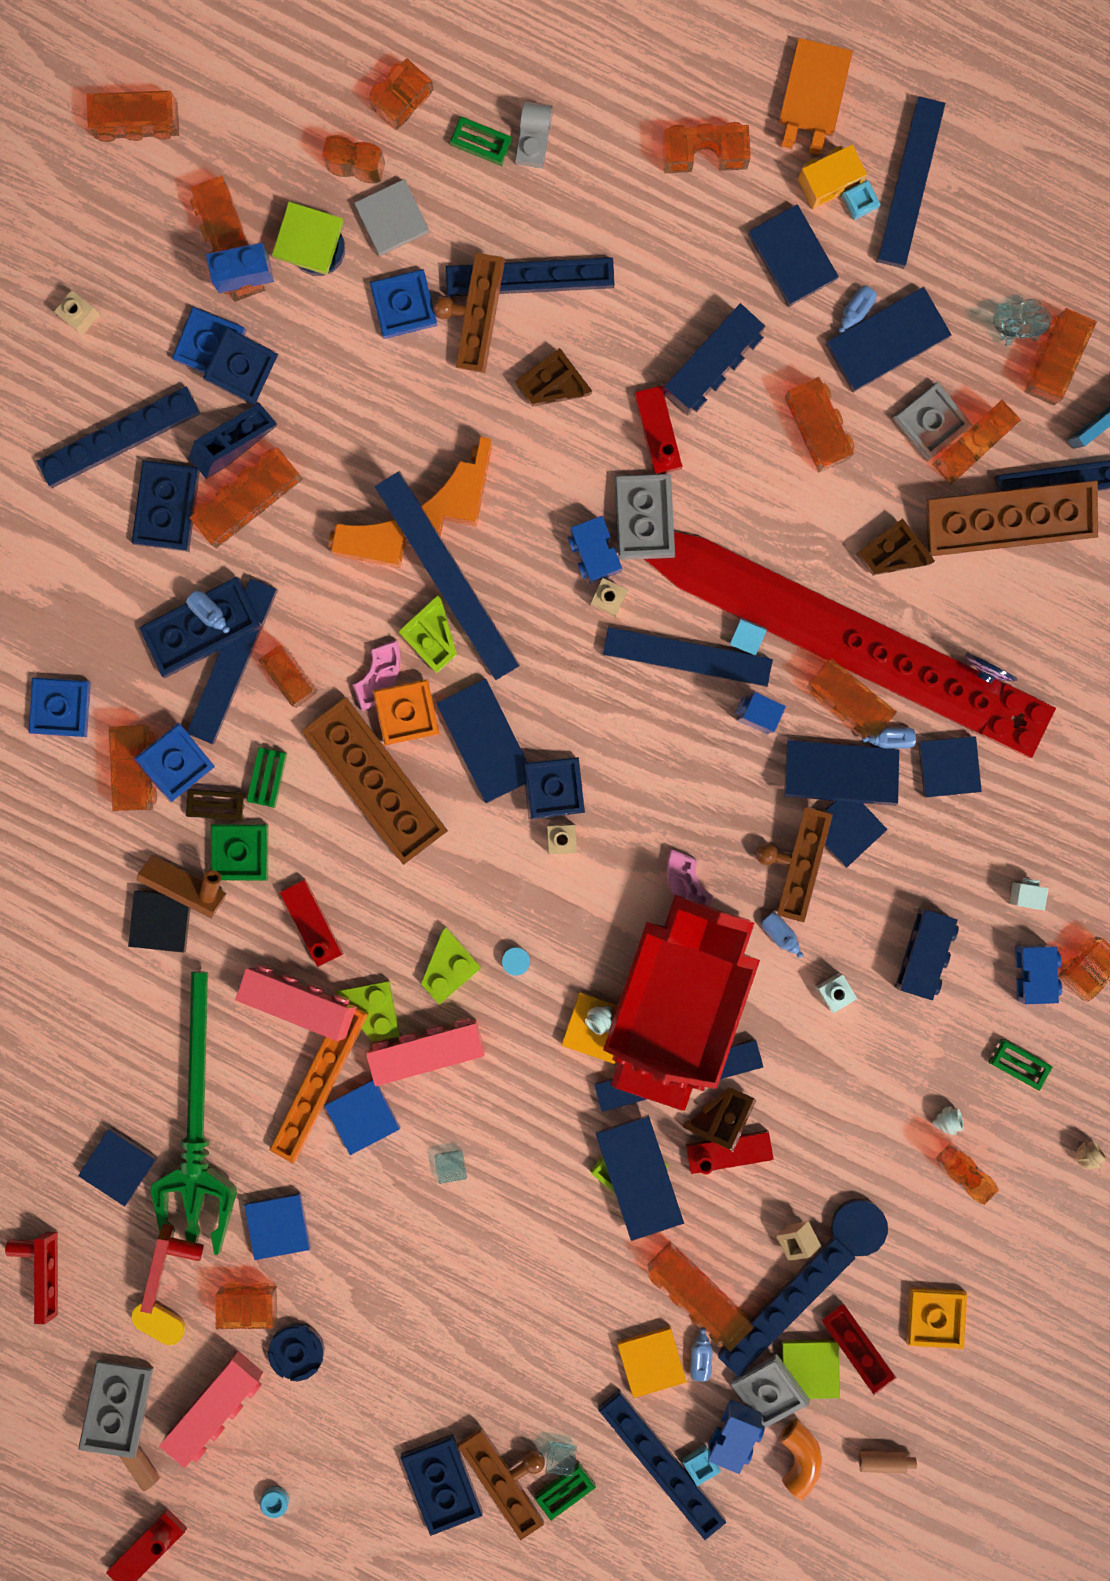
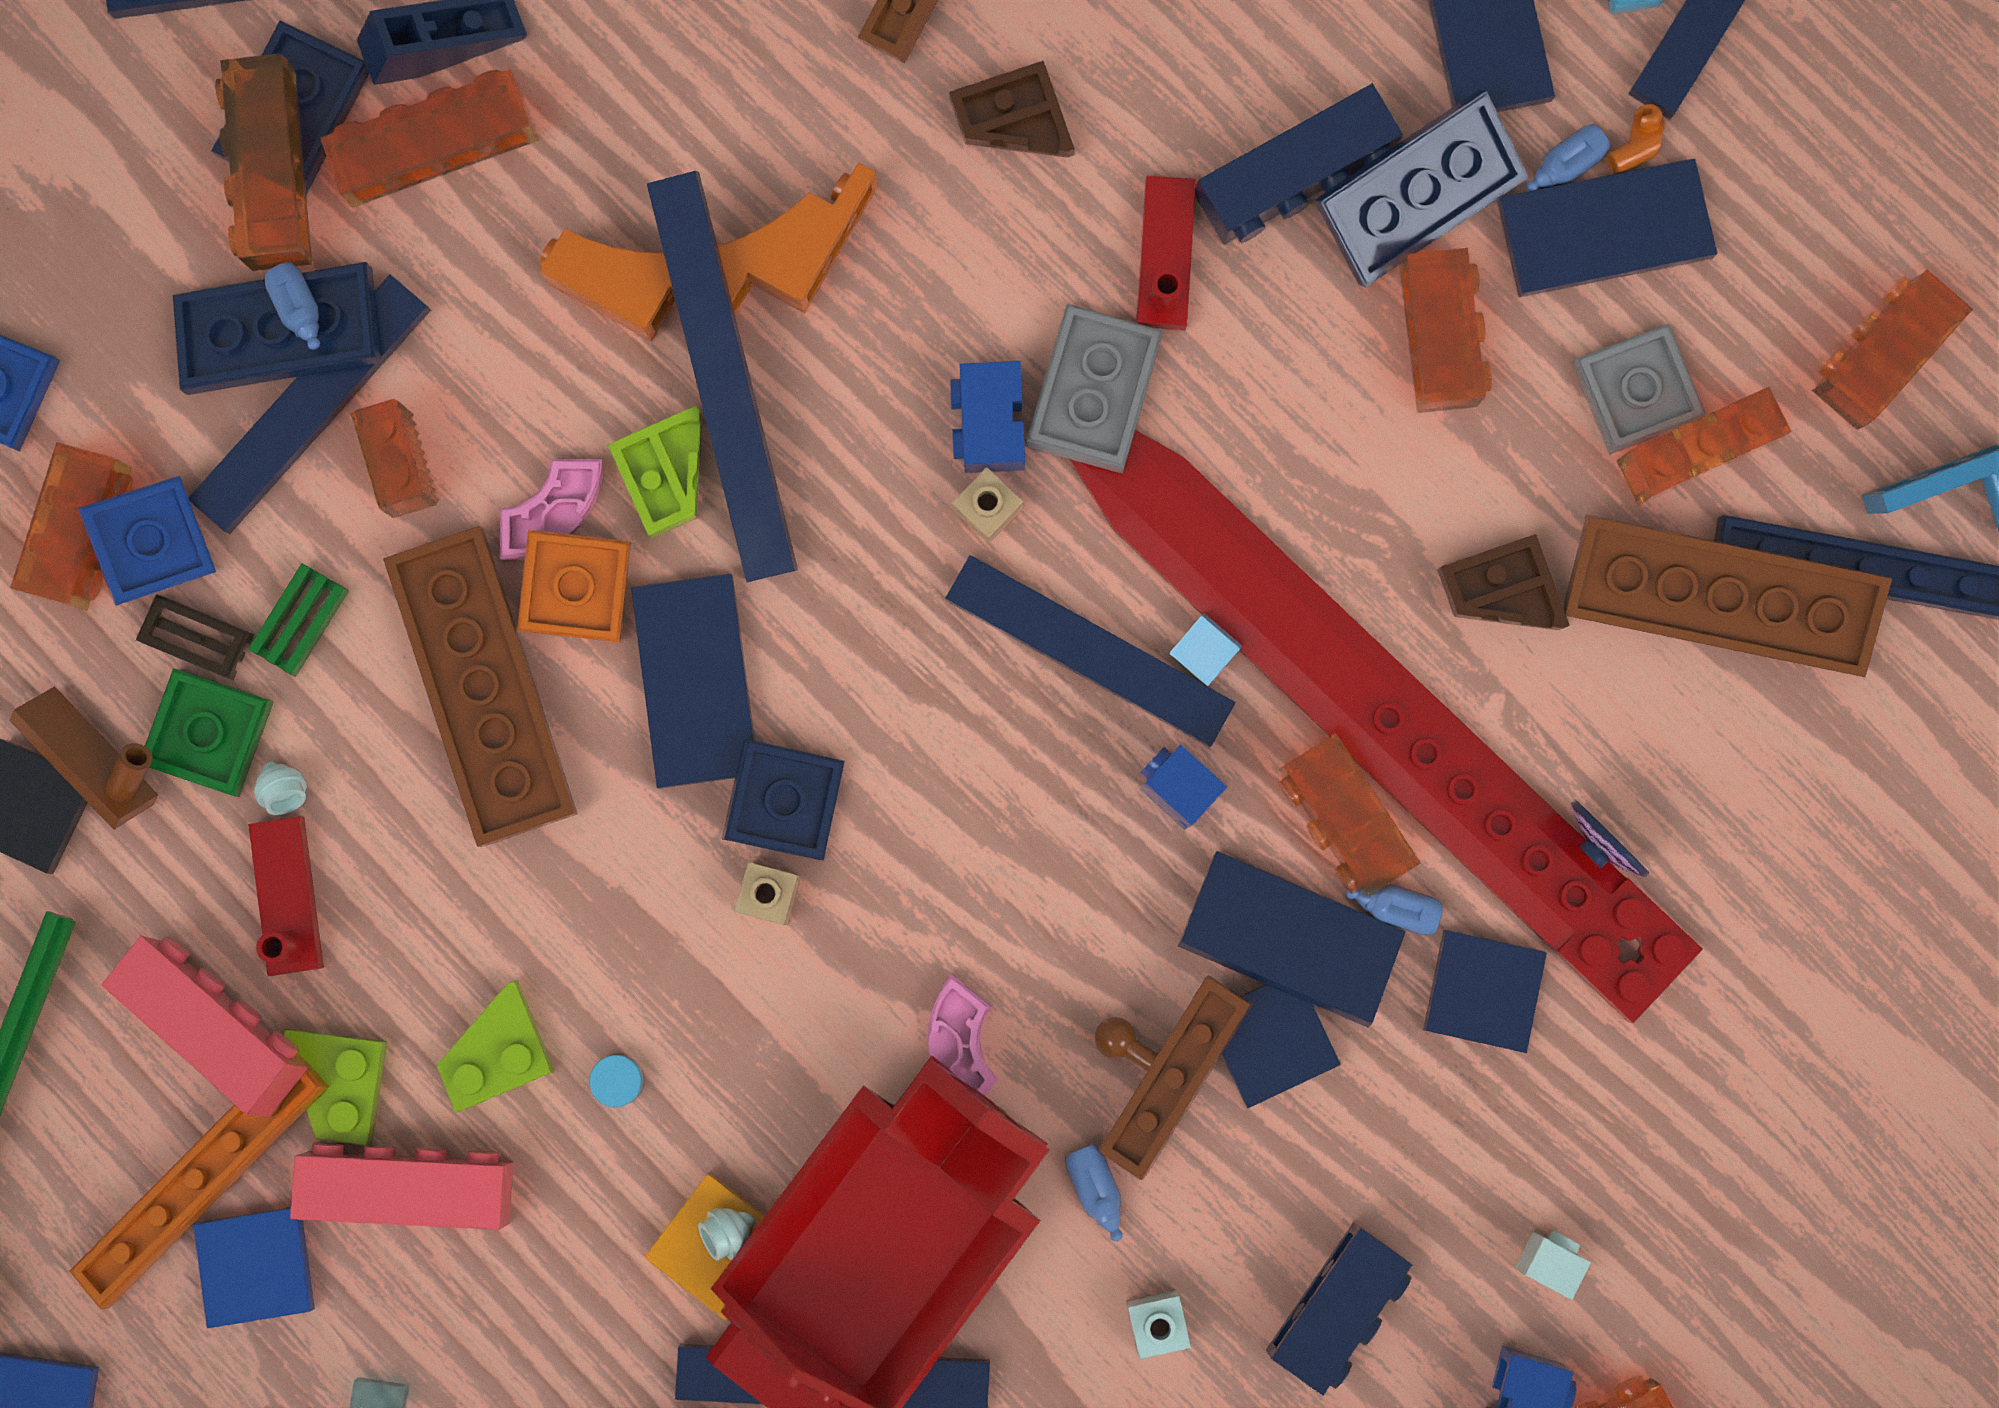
camera: 15 degrees right, 5 degrees down
(164, 540) = (264, 162): none -> clear orange brick
(289, 868) = (280, 788): none -> light aqua plate
(784, 351) = (1422, 188): none -> tile
(893, 286) = (1643, 142): none -> orange arm
(1021, 320) = (1844, 267): clear light blue plate -> none

